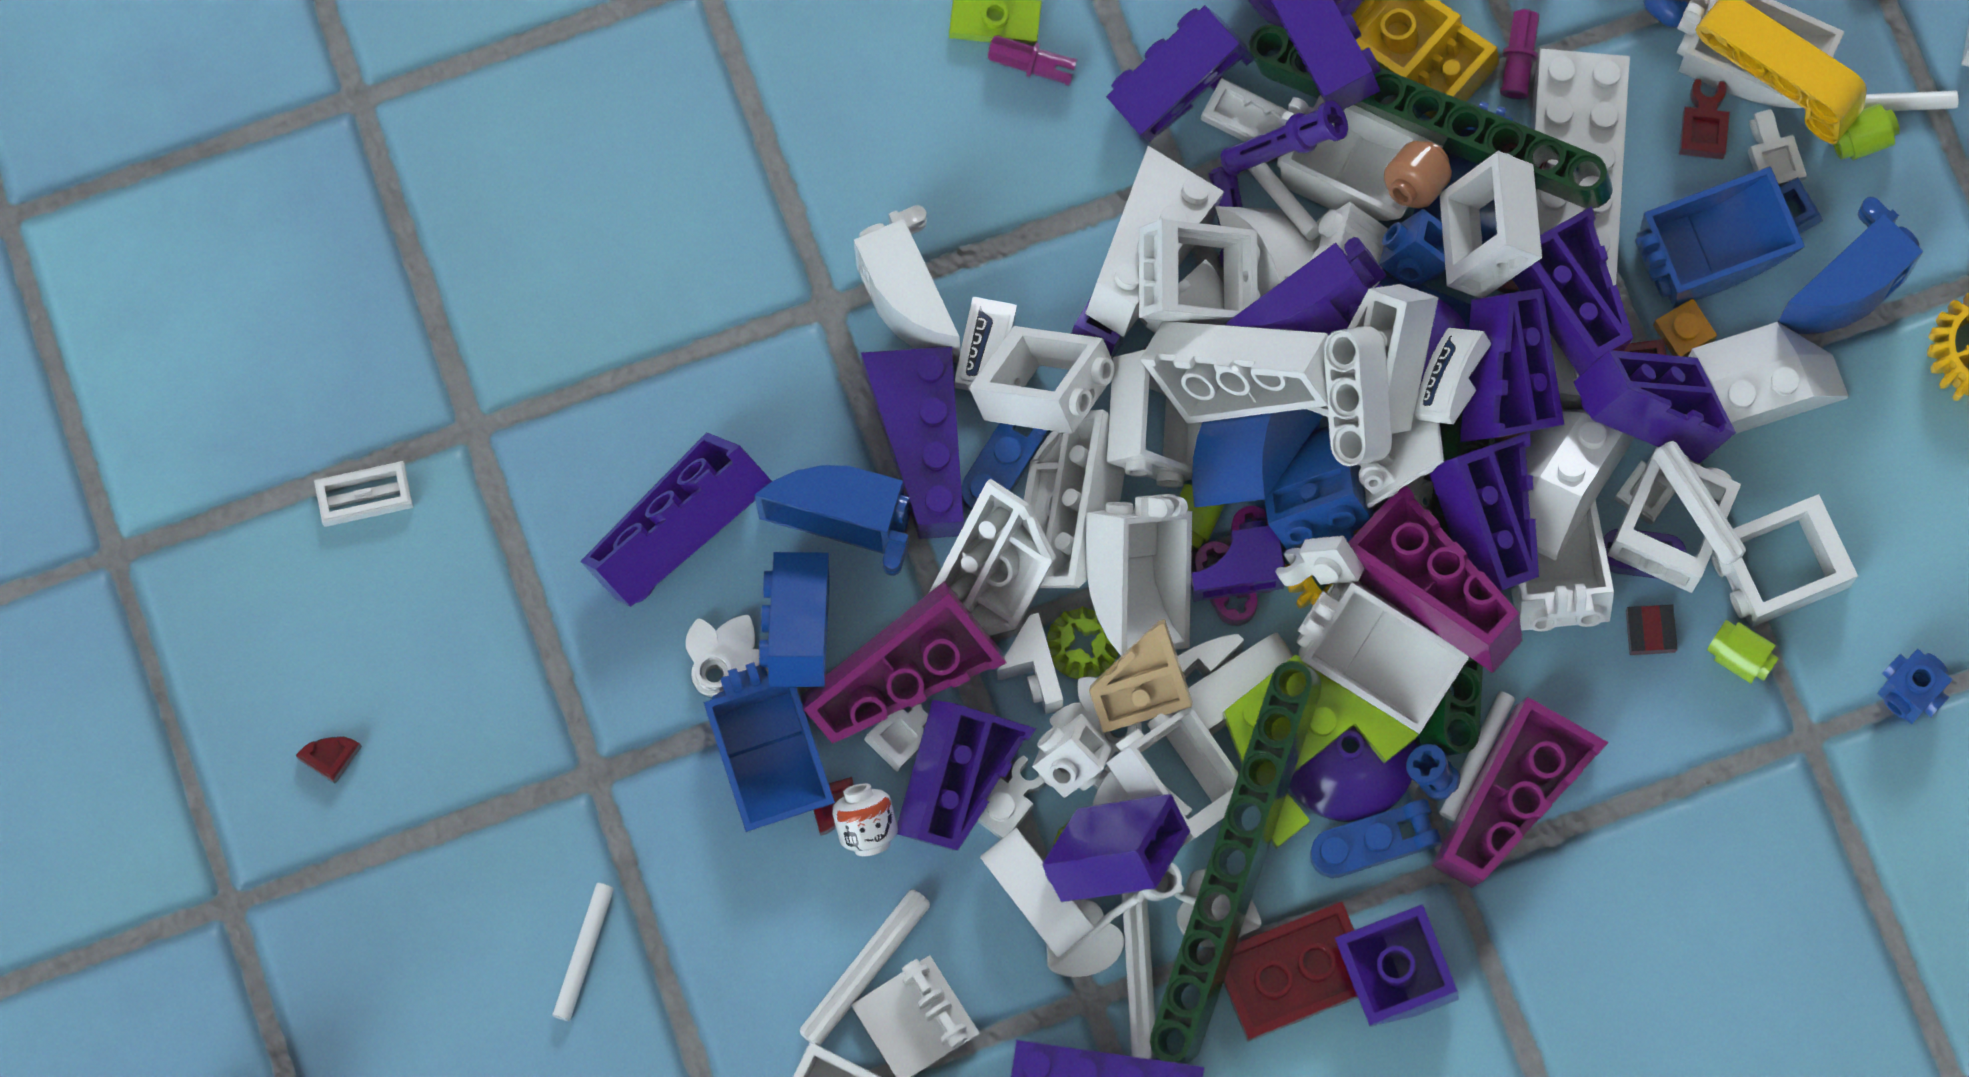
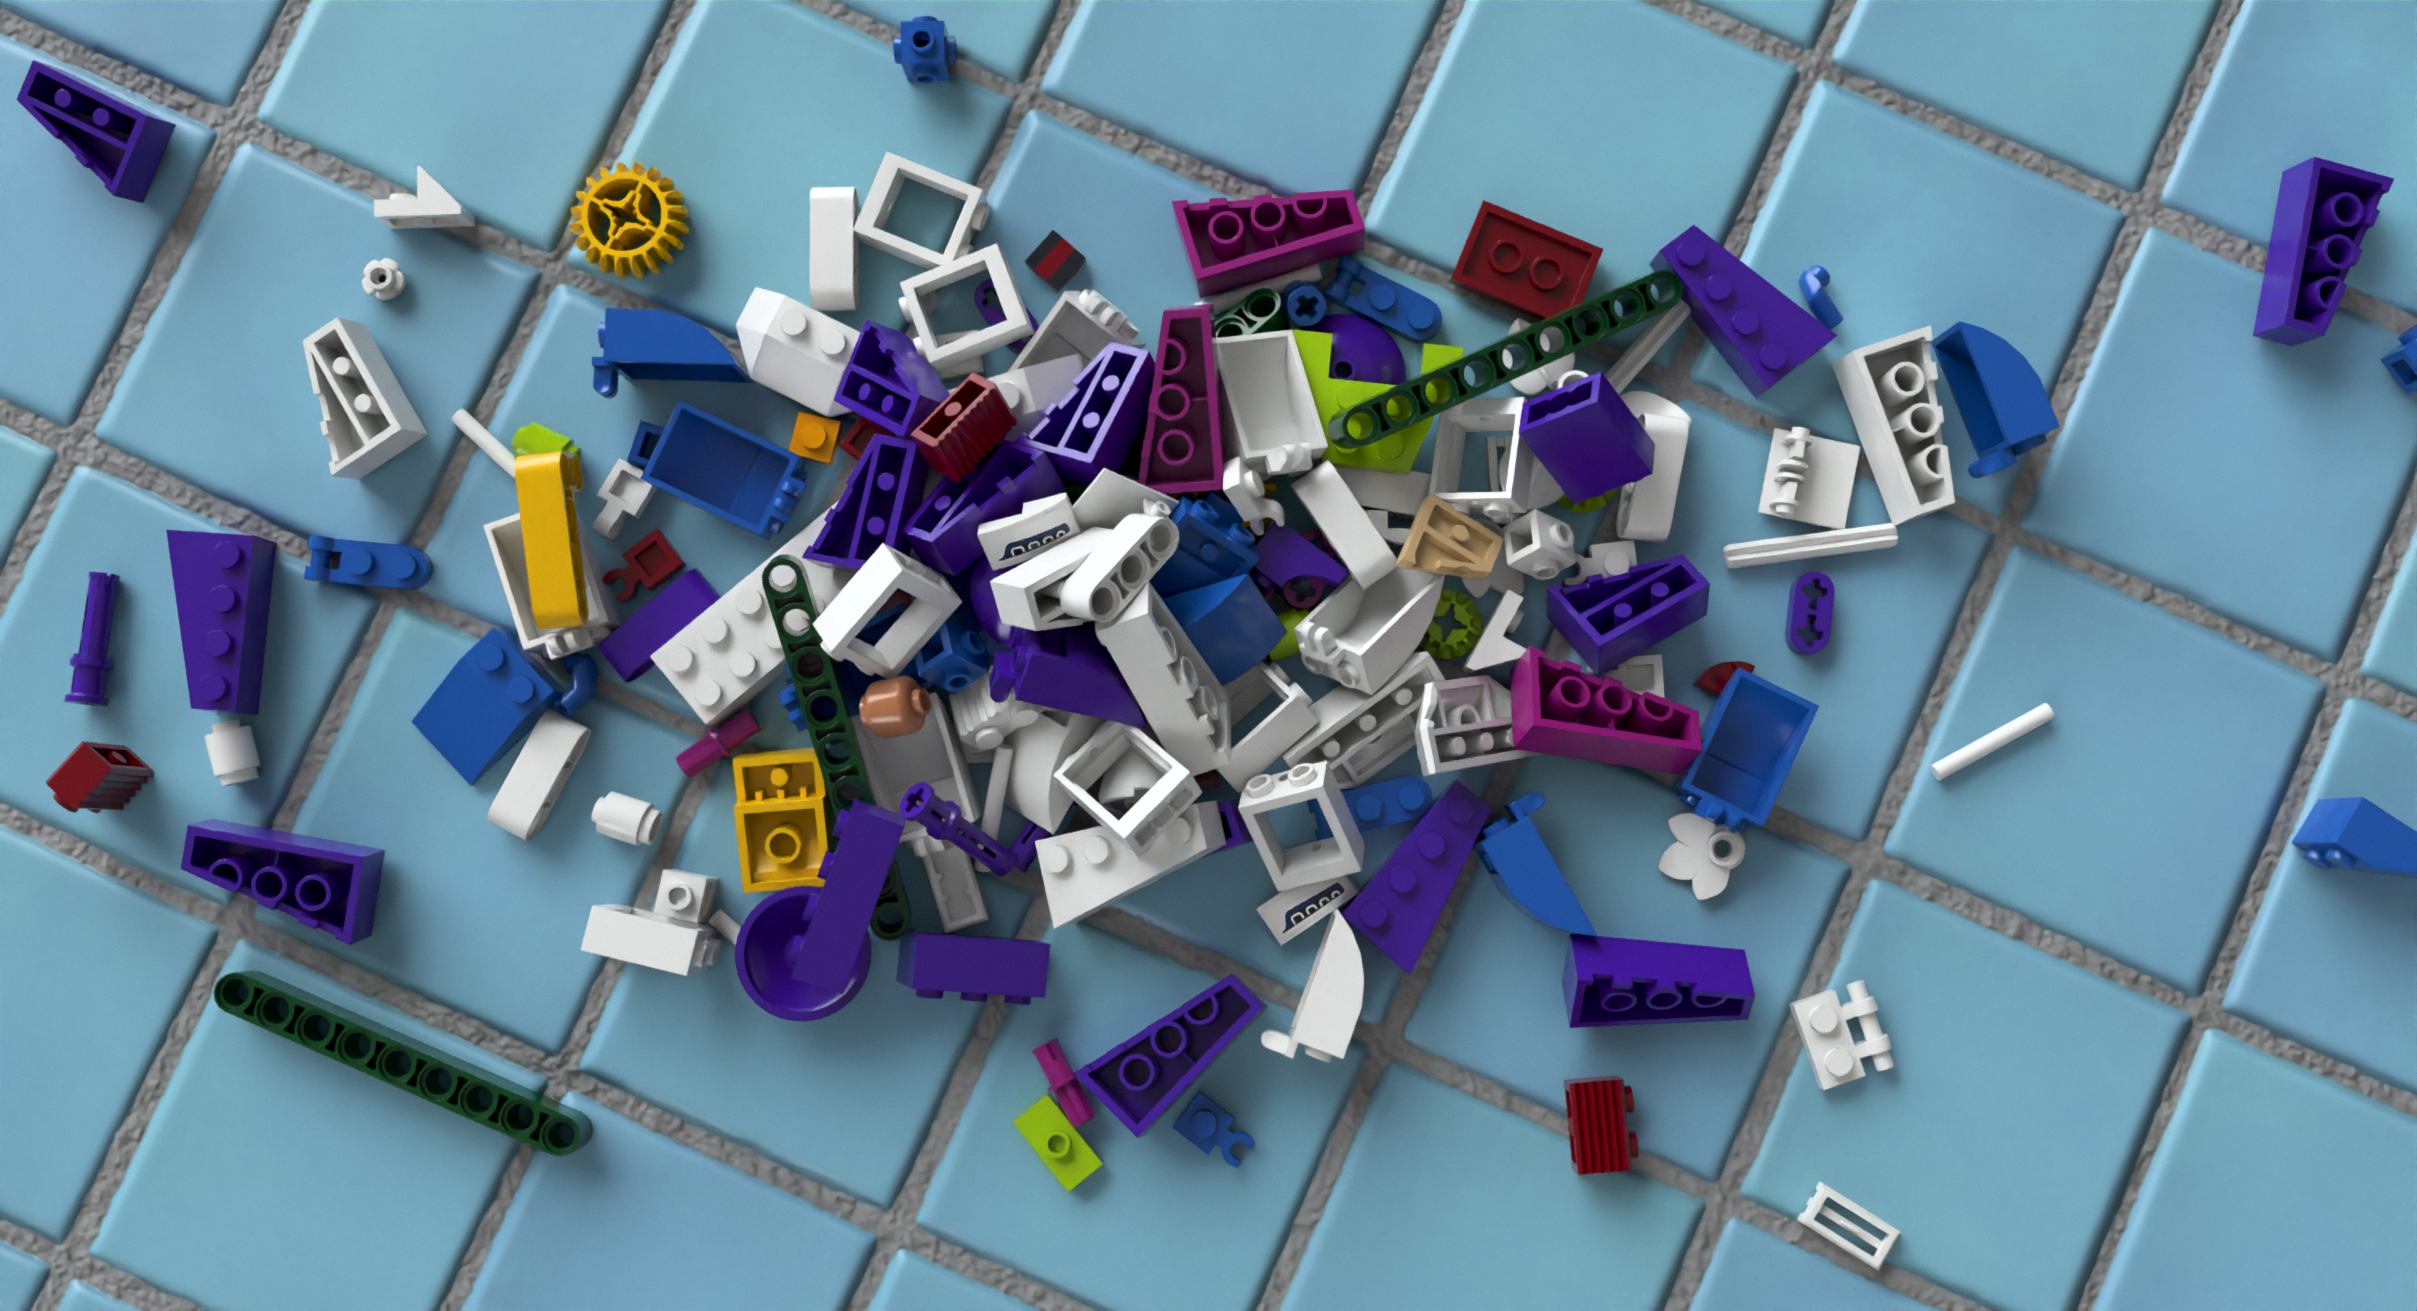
camera: 135 degrees left, 10 degrees up
(329, 756) = (2045, 1052): dark red tile -> none
(503, 611) = (1829, 1040): none -> white plate
(617, 388) = (1599, 1124): none -> dark red brick
(796, 619) = (1641, 823): blue brick -> none
(824, 907) = (1820, 614): none -> dark purple beam
(865, 820) = (1721, 640): white head -> none
(901, 129) = (1208, 1125): none -> blue plate
(976, 136) = (1162, 1062): none -> dark purple wedge
(1232, 621) = (1345, 525): none -> white beam
(1397, 967) = (1461, 195): dark purple slope -> none
(1573, 401) = (964, 427): none -> dark red brick
(1650, 92) = (656, 623): none -> dark purple beam
(1699, 502) = (944, 291): white axle -> none
(1743, 651) = (1012, 184): lime brick -> none
(1815, 469) = (834, 249): none -> white beam

